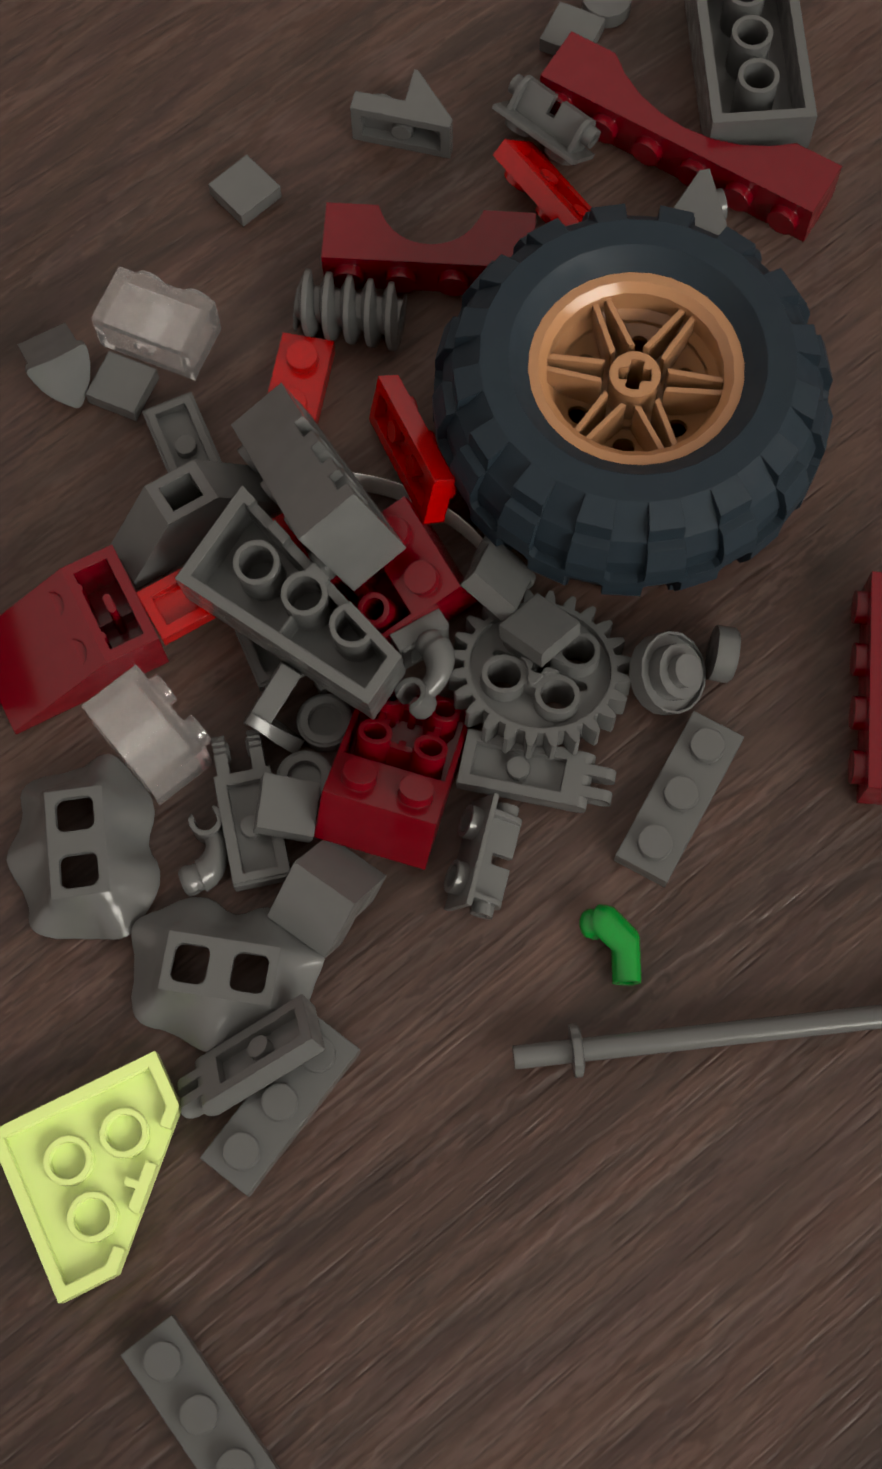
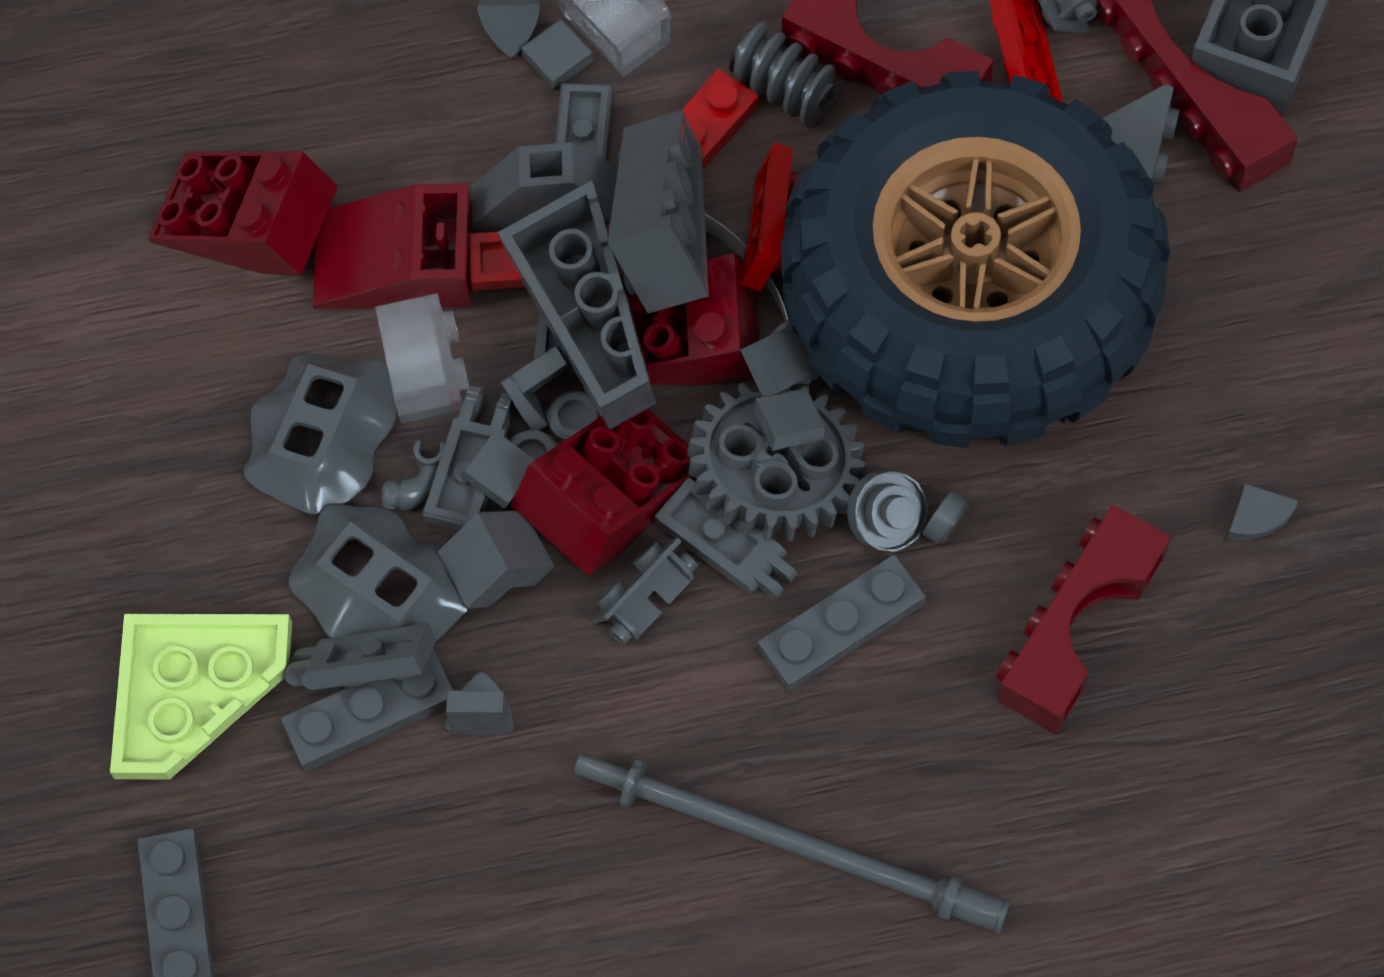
camera: 30 degrees right, 5 degrees down
(388, 1049) = (478, 709): none -> dark grey tile
(405, 638) = (690, 384): dark grey tile -> none
(439, 661) = (691, 406): dark grey arm -> none
(619, 936) = (724, 712): green arm -> none

